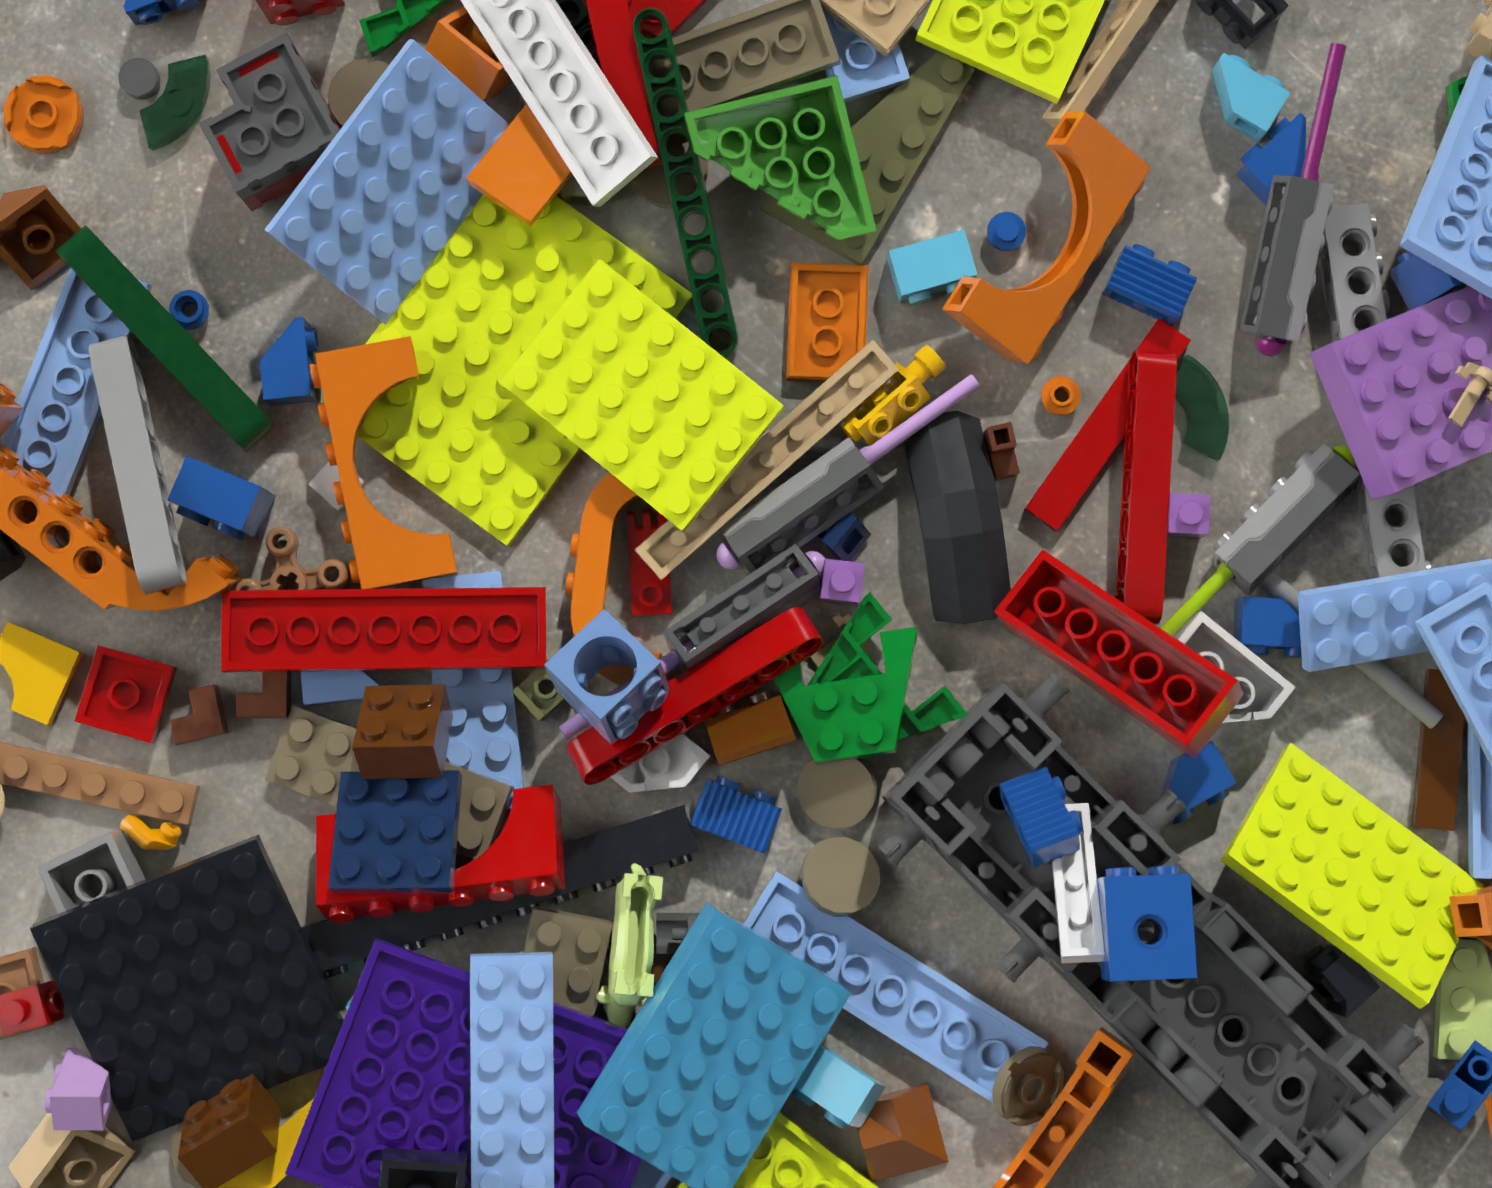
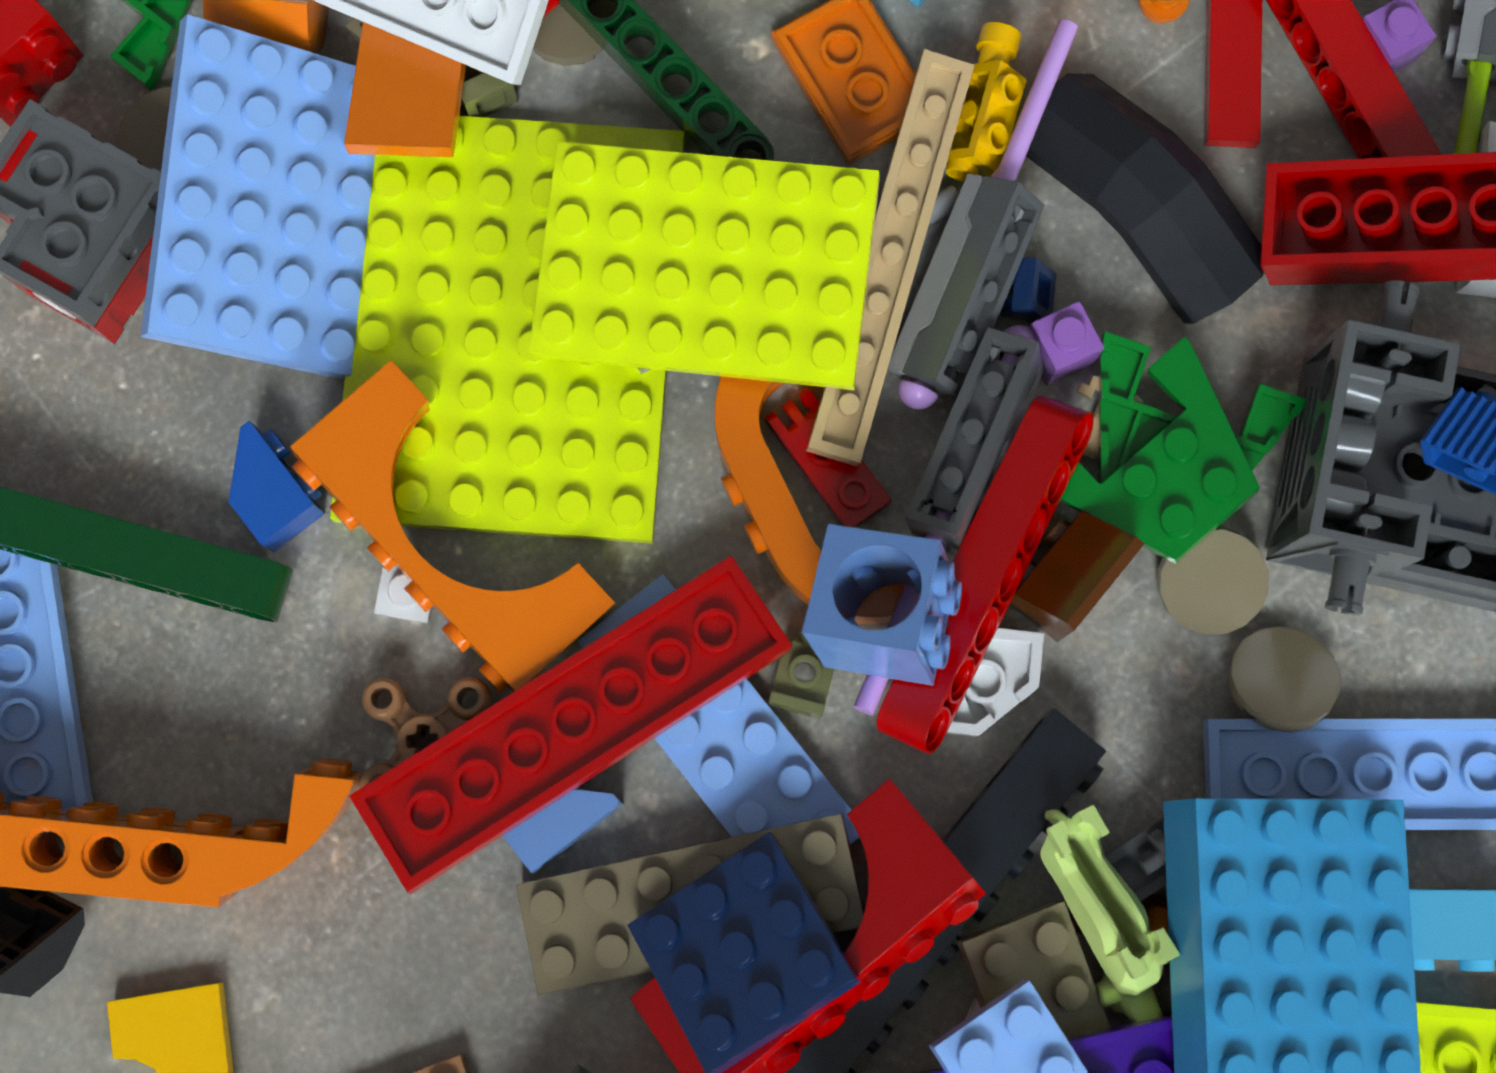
camera: 30 degrees left, 5 degrees down
(125, 694) = (305, 998): red plate -> none
(137, 465) = (156, 711): light grey beam -> none
(184, 299) = (102, 484): blue plate -> none
(207, 717) = (423, 965): copper piece -> none
(215, 495) = (280, 689): blue brick -> none
(272, 702) = (488, 895): copper piece -> none
(403, 731) = (673, 828): reddish brown brick -> none
(736, 815) = (1119, 682): blue brick -> none
(1000, 447) = (1136, 81): copper piece -> none

